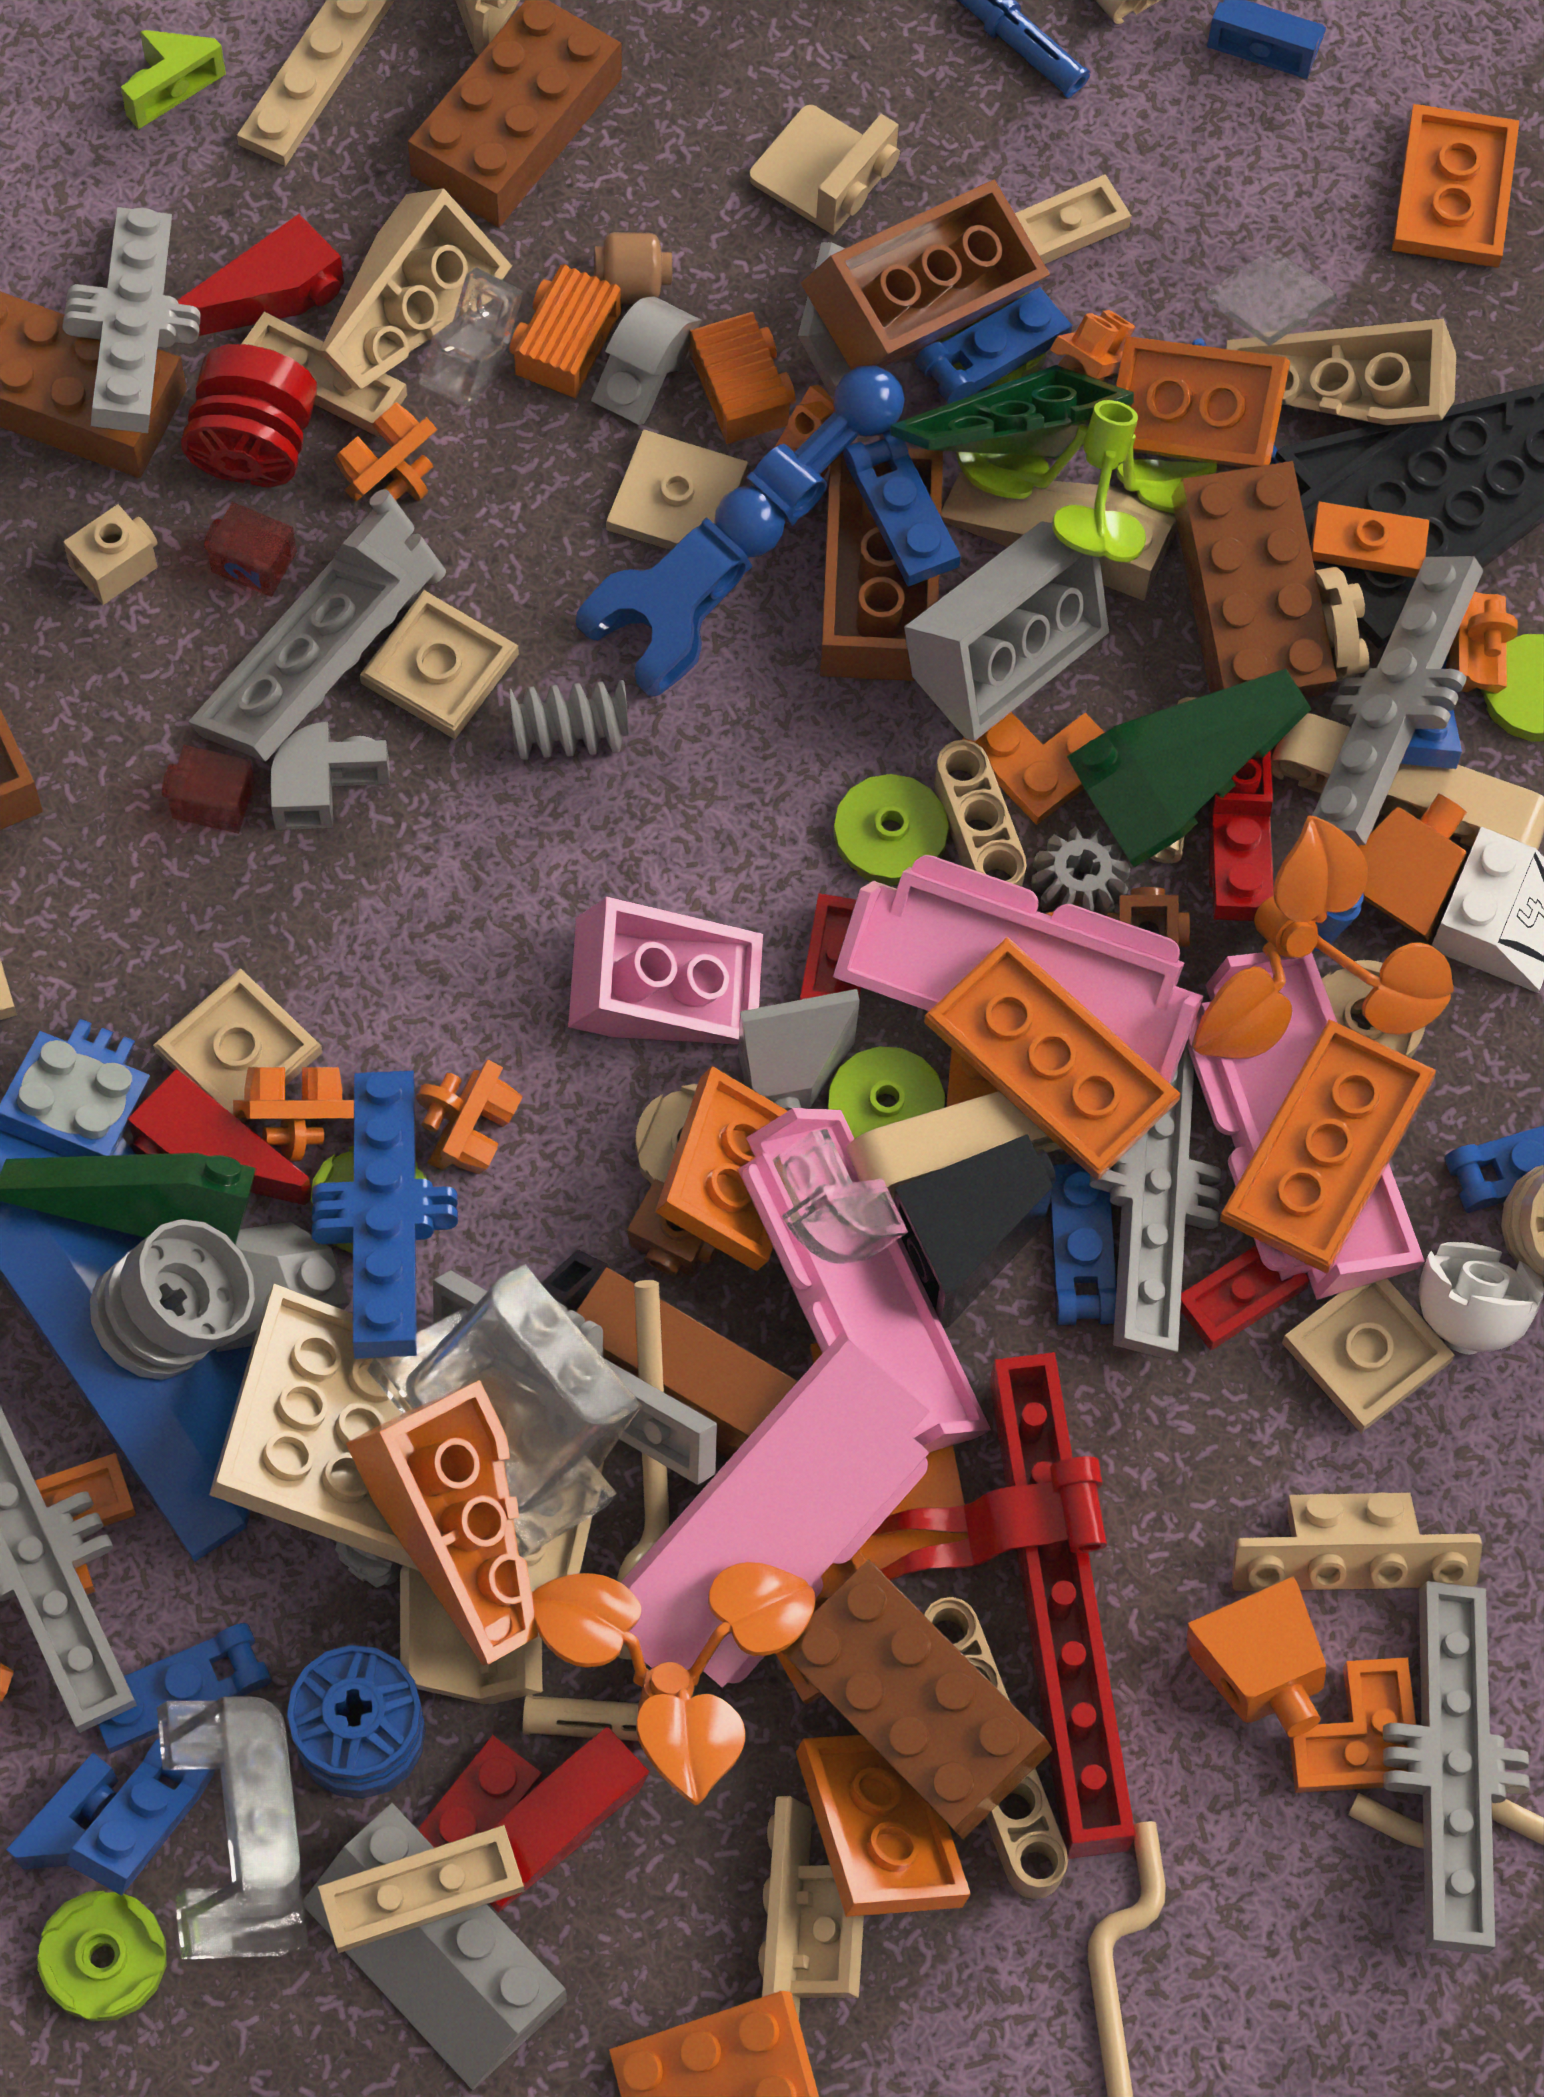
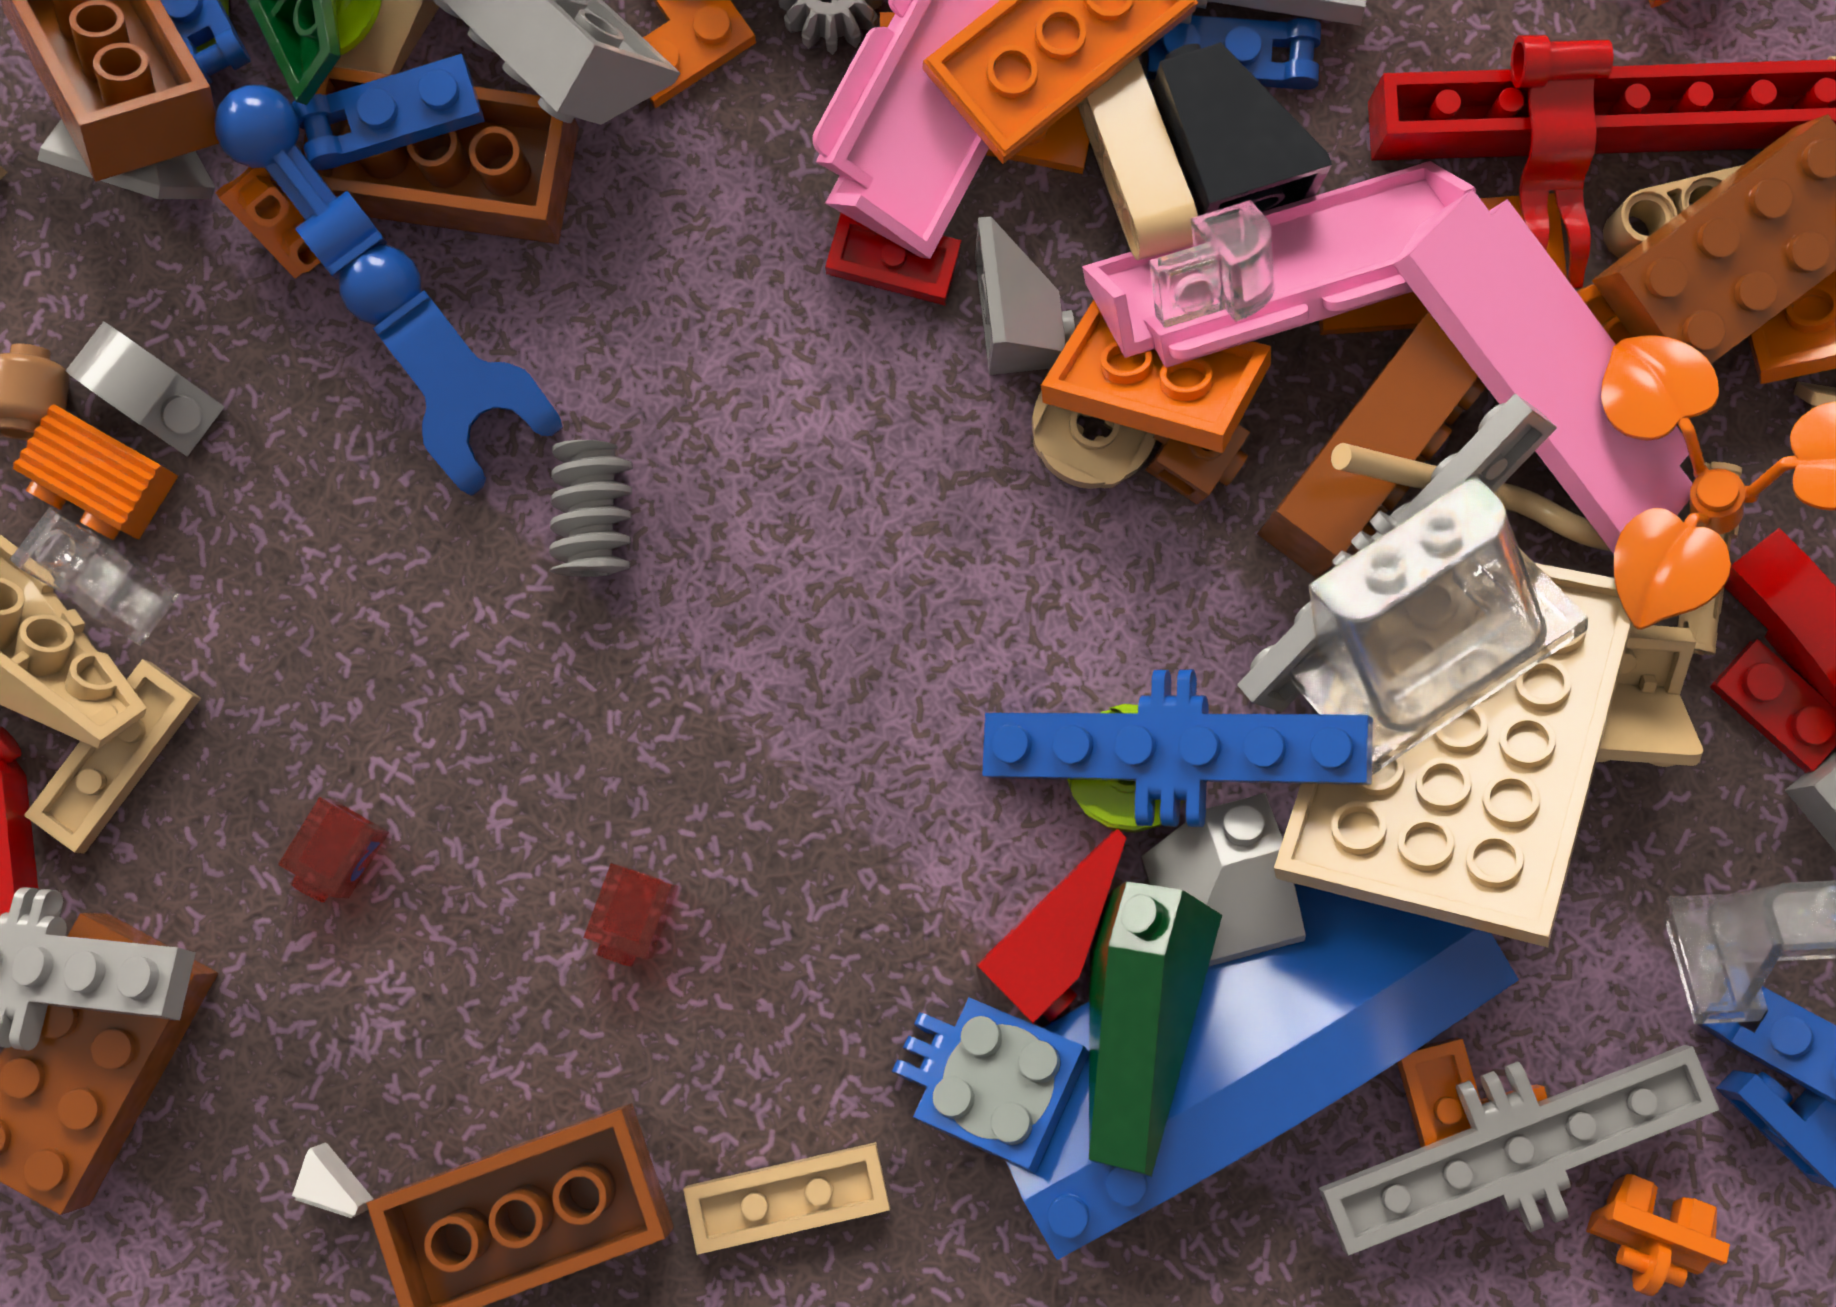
camera: 80 degrees left, 15 degrees up
(112, 553) = (318, 1008): tan brick -> none
(172, 1299) = (1287, 979): light grey wheel -> none
(186, 1678) = (1643, 992): blue plate -> none
(235, 1031) = (943, 900): tan plate -> none
(249, 415) = (165, 838): red wheel -> none
(266, 1100) = (1035, 841): orange hips -> none
(312, 764) = (623, 804): light grey brick -> none
(321, 633) = (462, 778): light grey hinge -> none
(364, 1757) = (1681, 826): blue wheel -> none
(404, 436) = (251, 705): orange hips -> none
(439, 664) = (500, 649): tan plate -> none
(449, 1504) = (1549, 694): orange wedge -> none
(482, 1096) = (1044, 664): orange hips -> none
(574, 1279) = (1245, 559): black plate -> none
(661, 974) = (905, 439): bright pink slope -> none
(671, 489) = (317, 374): tan plate -> none
(741, 377) = (180, 286): orange brick -> none
(879, 1073) = (1067, 194): lime plate -> none
(882, 853) = (754, 218): lime plate -> none
(976, 800) = (731, 80): tan beam -> none

